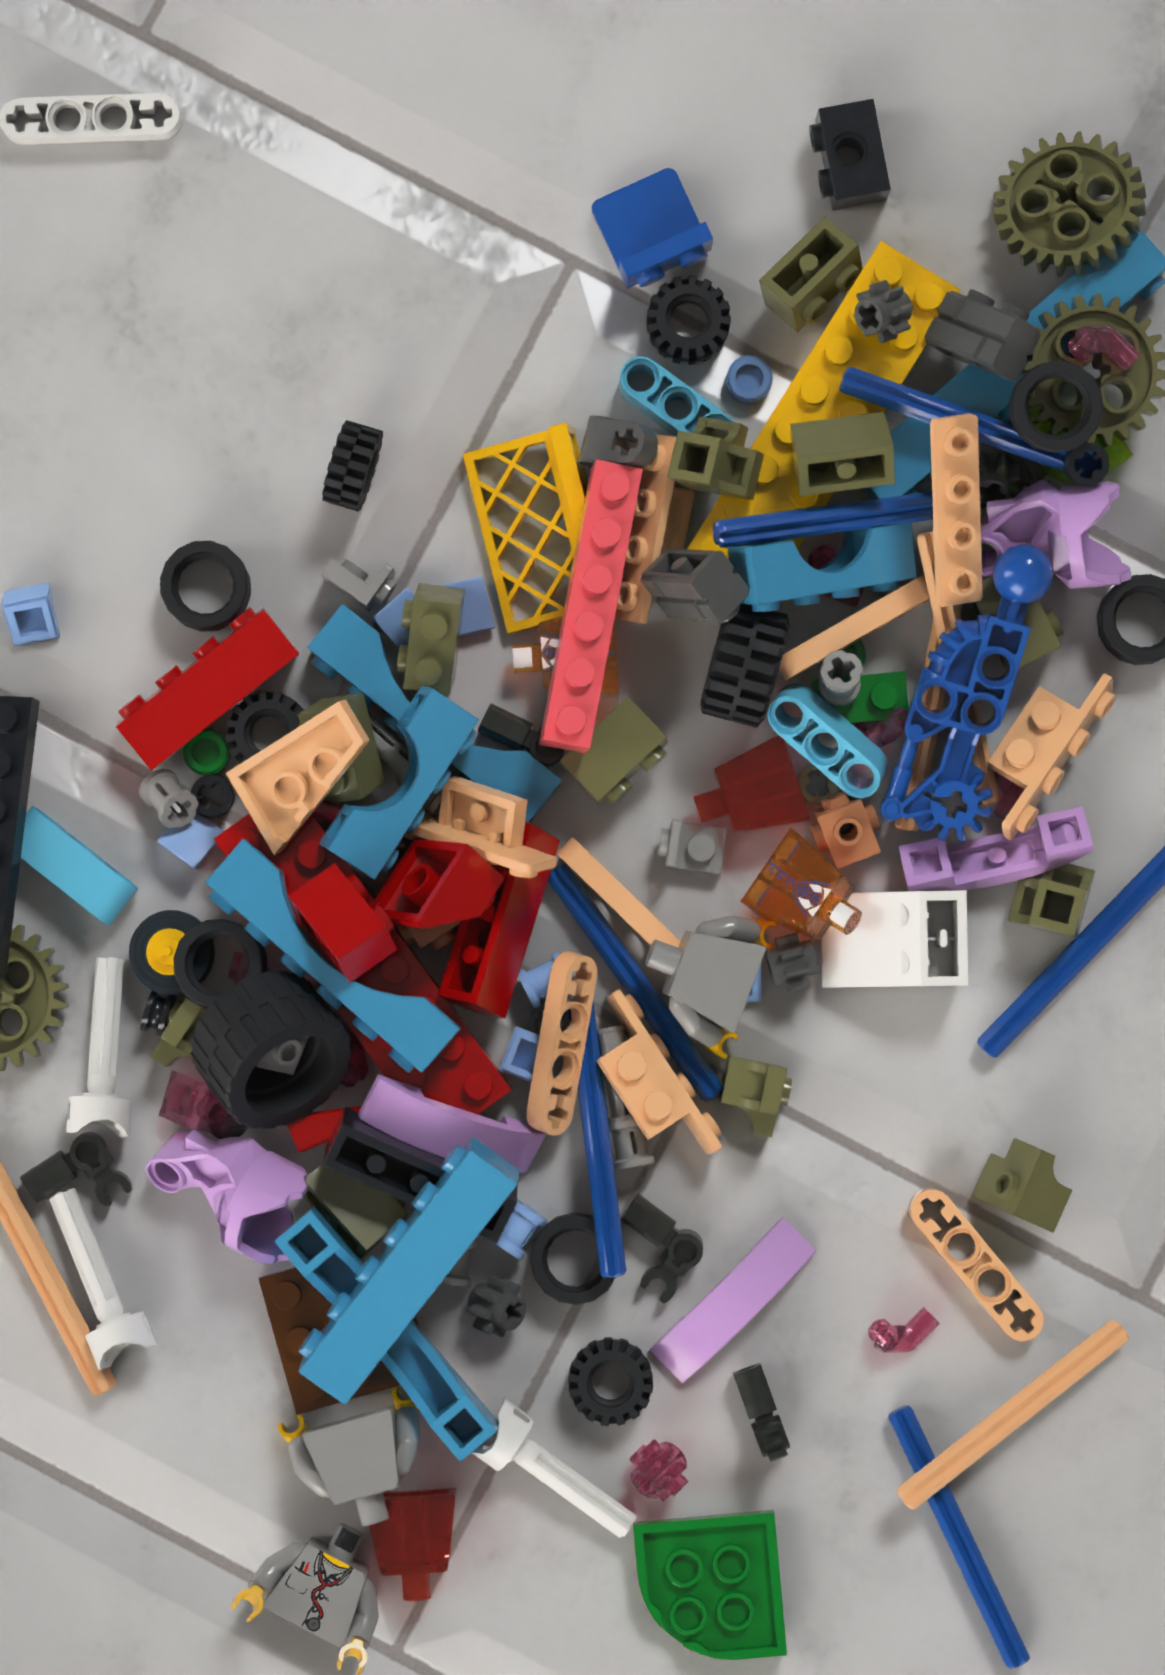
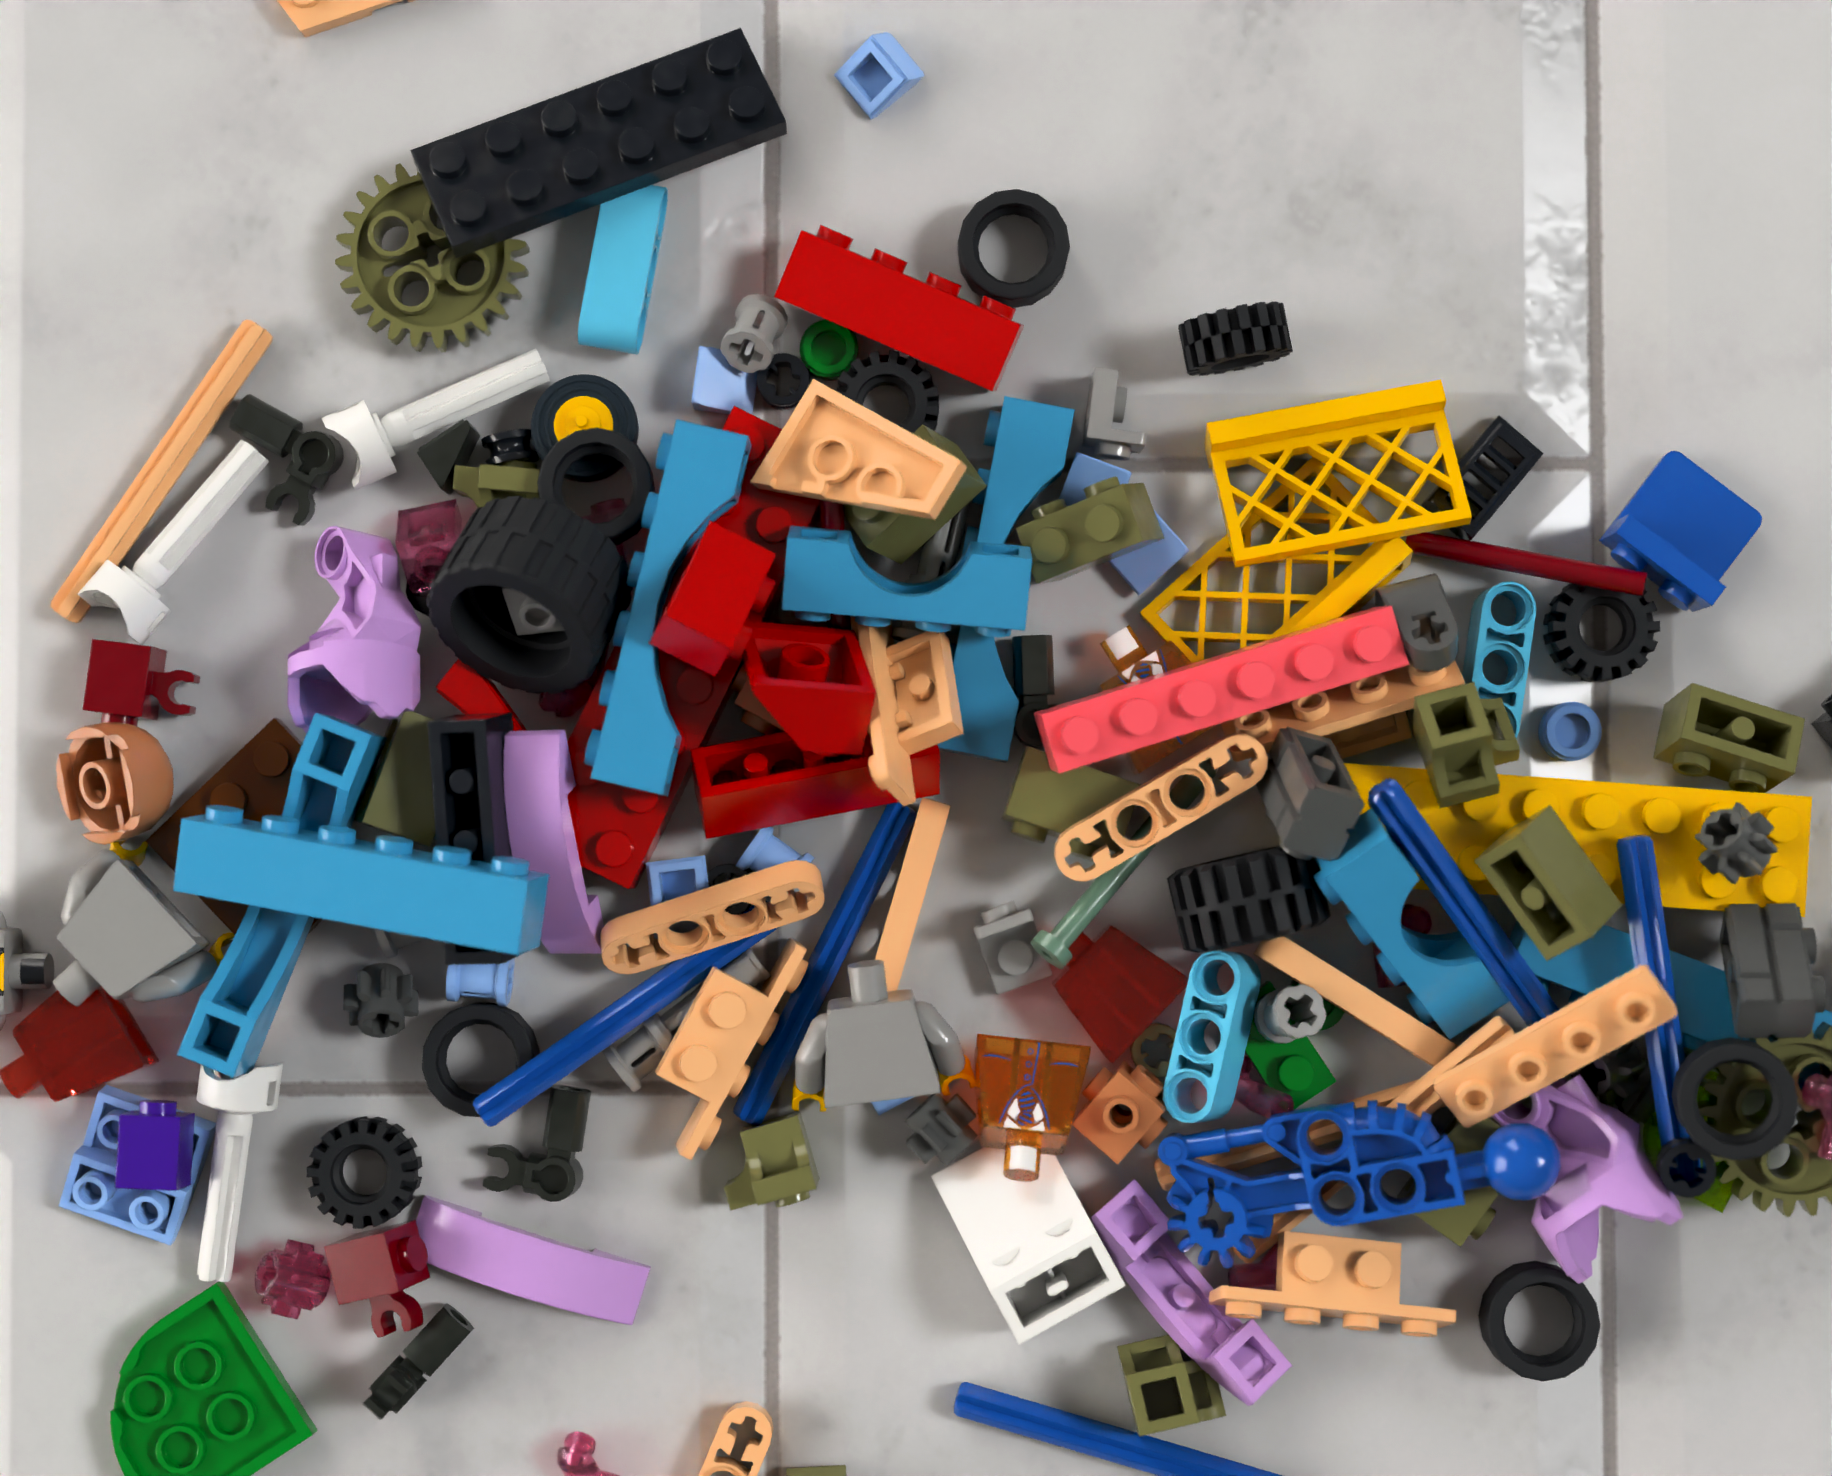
camera: 60 degrees right, 0 degrees up
(137, 1057) = (447, 450): none -> pearl dark grey slope
(178, 1366) = (131, 683): none -> dark red brick
(244, 1412) = (114, 781): none -> nougat cylinder
(446, 439) = (1337, 425): none -> yellow fence
(515, 1515) = (155, 1147): none -> dark purple brick
(521, 1539) = (92, 1175): none -> light blue slope
(554, 380) = (1441, 501): none -> black slope
(615, 348) = (1528, 563): none -> dark red bar
(655, 691) = (1155, 798): none -> light nougat beam
(682, 1404) = (379, 1268): none -> dark red brick
(707, 815) = (1055, 945): none -> sand green bar

